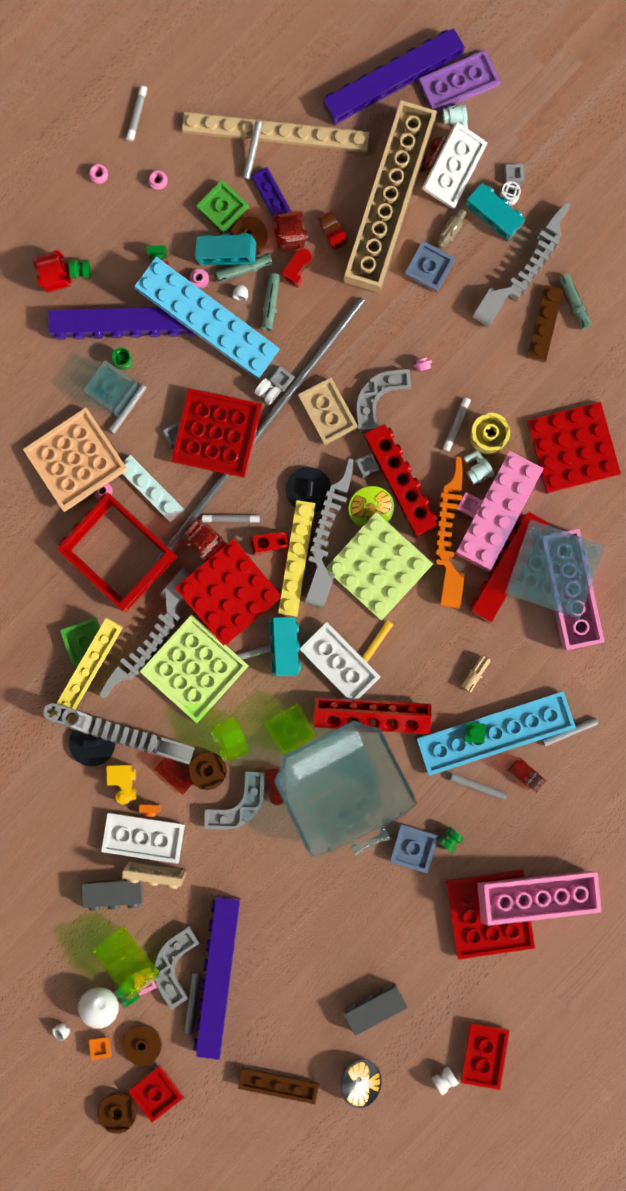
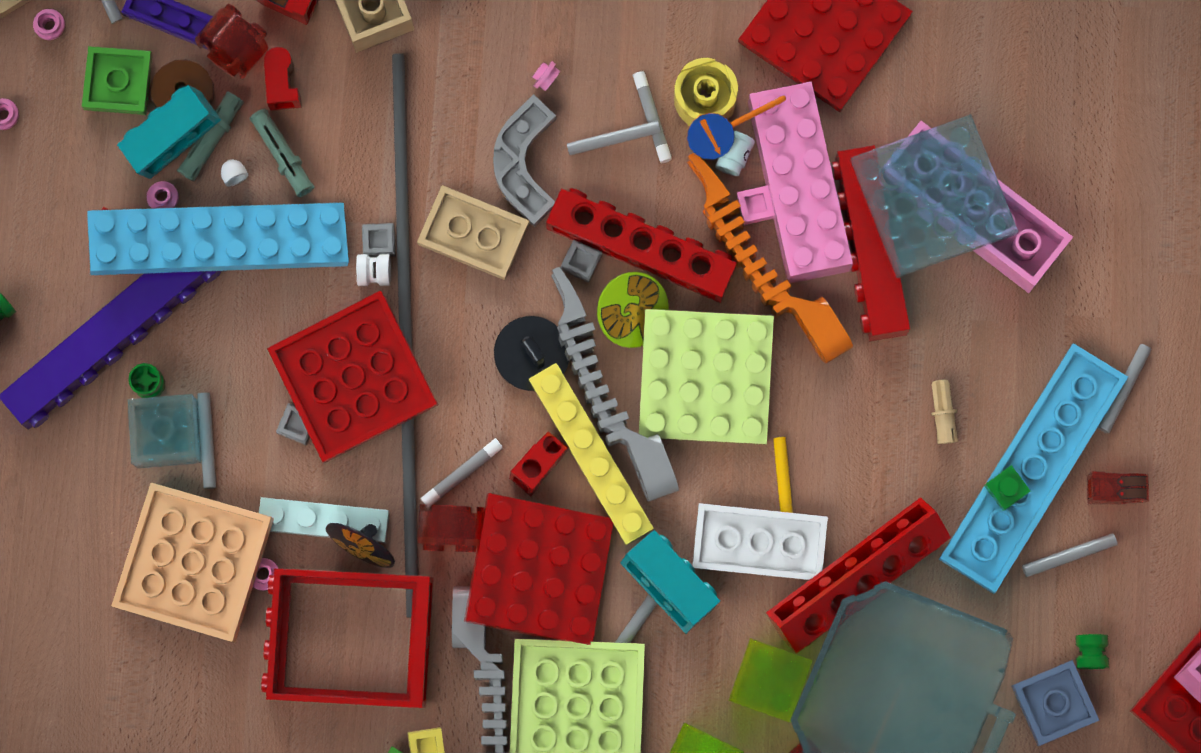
camera: 40 degrees left, 5 degrees down
(156, 513) = (361, 544): none -> shield
(157, 251) = (78, 206): green plate -> none
(213, 149) = (45, 16): none -> bright pink plate
(429, 419) = (614, 138): none -> light grey piece
(475, 456) = (713, 135): none -> blue piece

